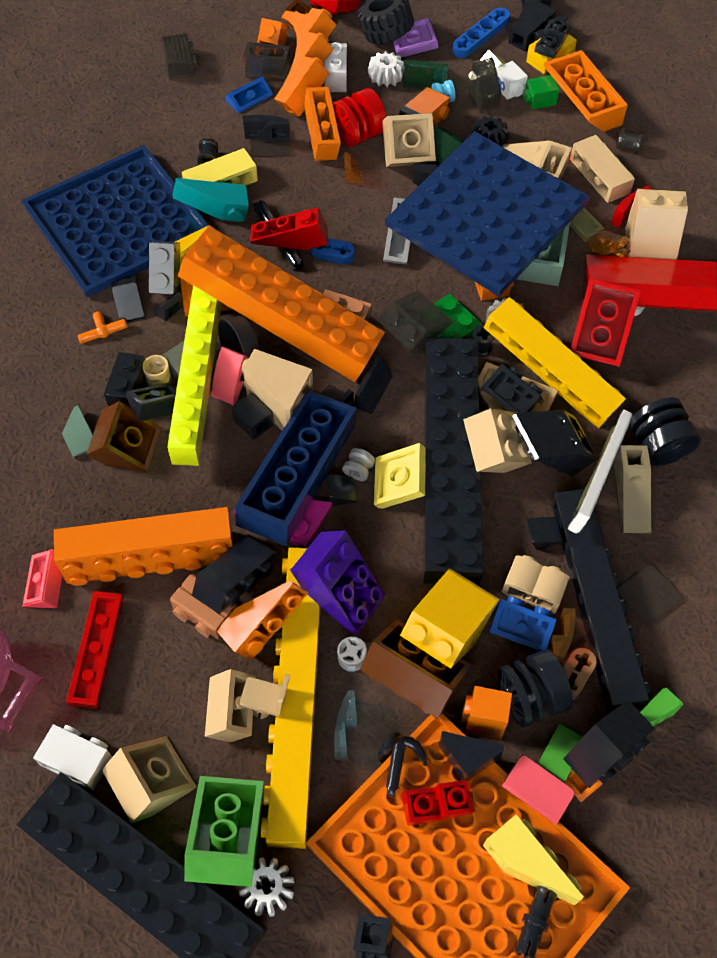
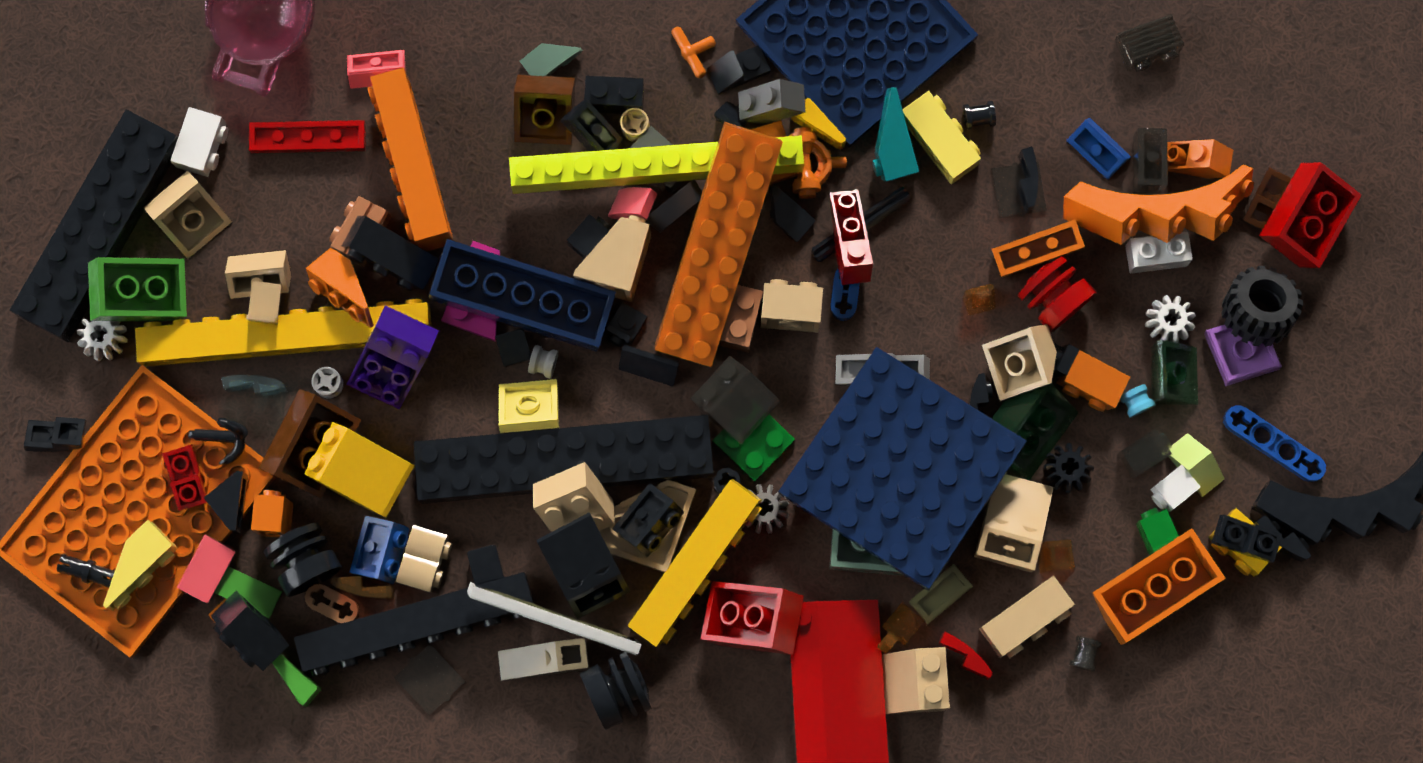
camera: 85 degrees right, 20 degrees up
(342, 267) = (791, 306): none -> tan brick

